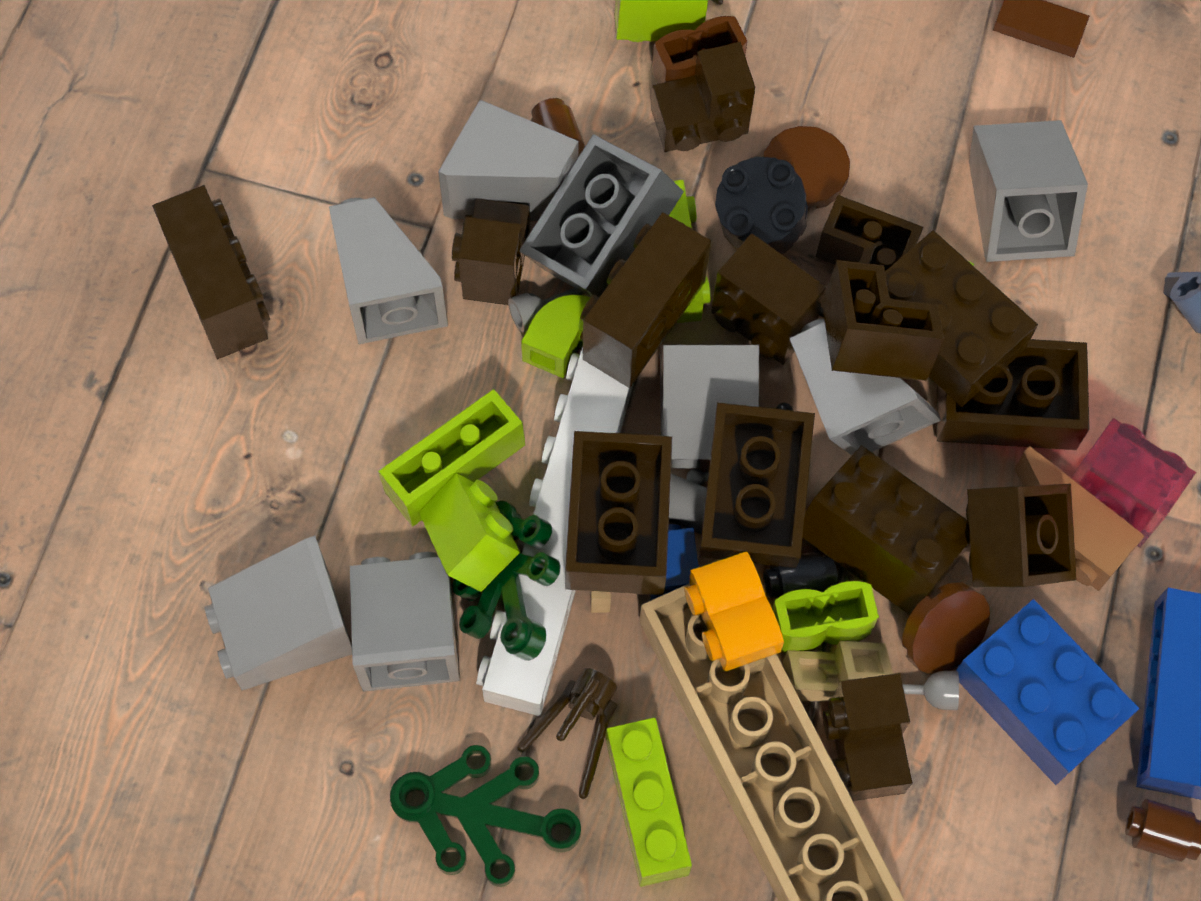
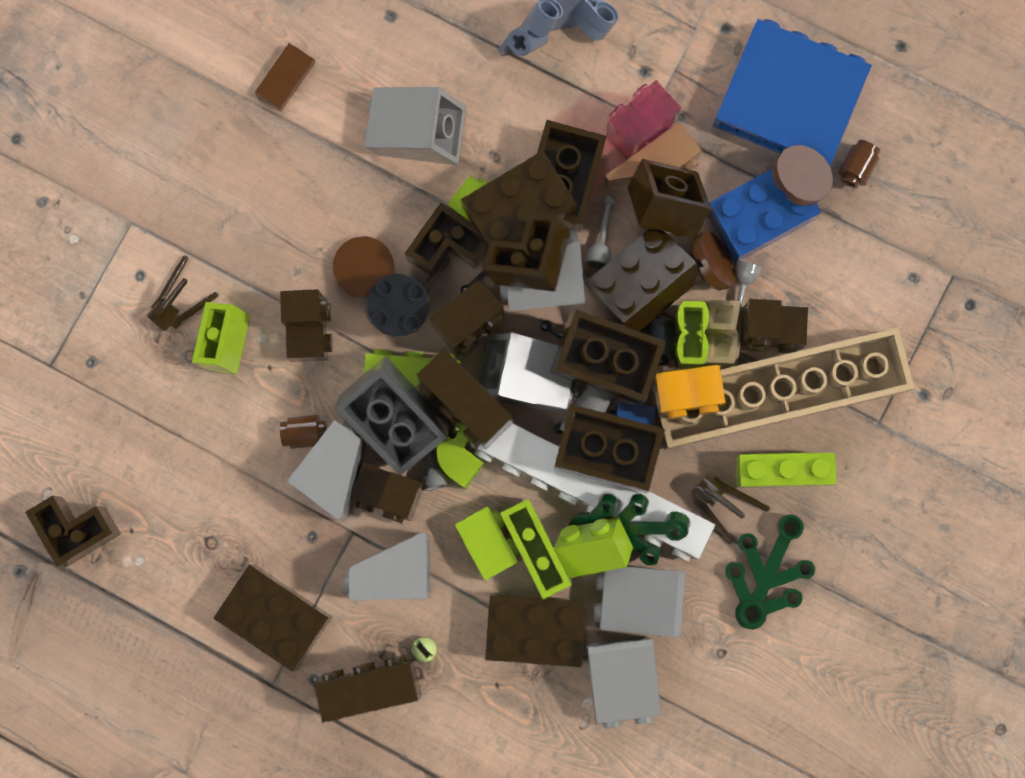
camera: 75 degrees left, 15 degrees up
(288, 350) = (428, 644): none -> yellowish green hinge
(293, 143) = (272, 617): none -> dark brown brick
(333, 479) = (535, 631): none -> dark brown brick
(445, 389) = (487, 543): none -> lime brick
(677, 52) = (267, 329): reddish brown brick -> none
(916, 469) = (599, 253): none -> light grey hinge
(1118, 726) = (802, 175): none -> tile

